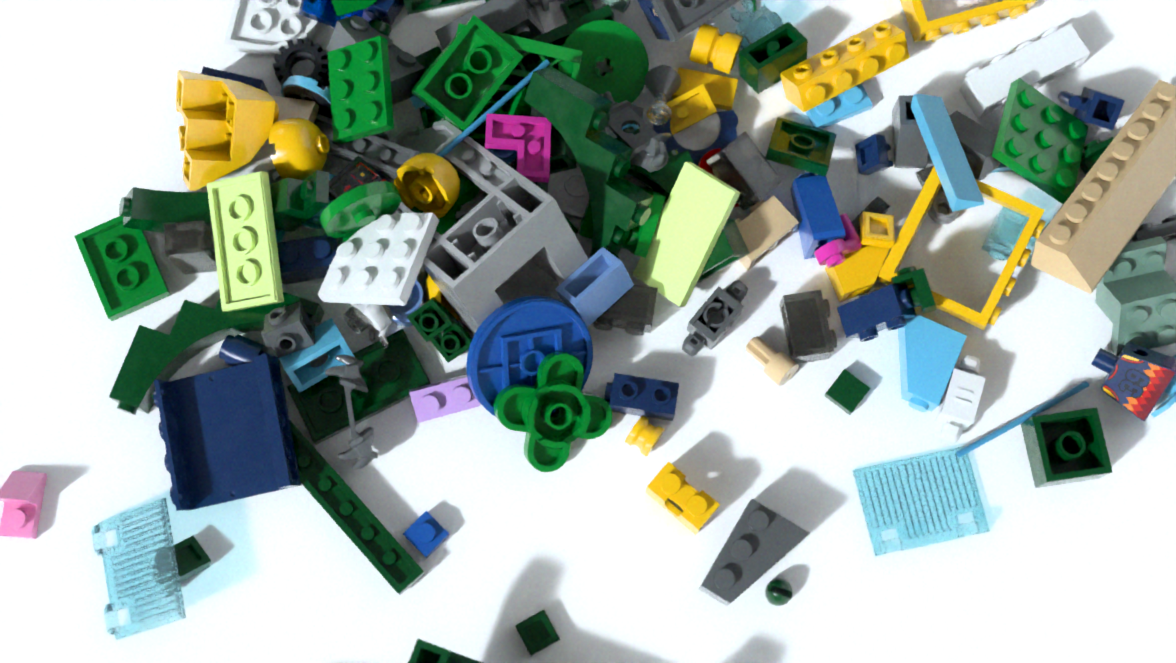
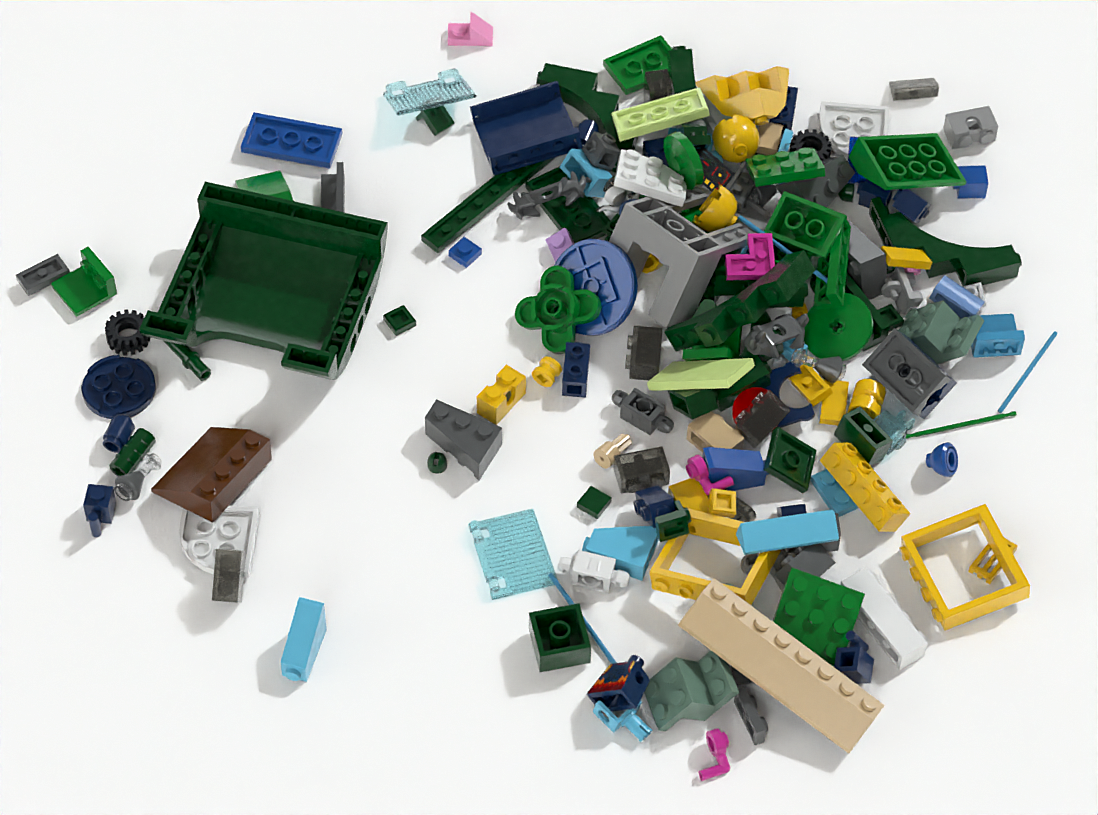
camera: 85 degrees right, 20 degrees down
(595, 286) = (652, 322): medium blue brick -> none

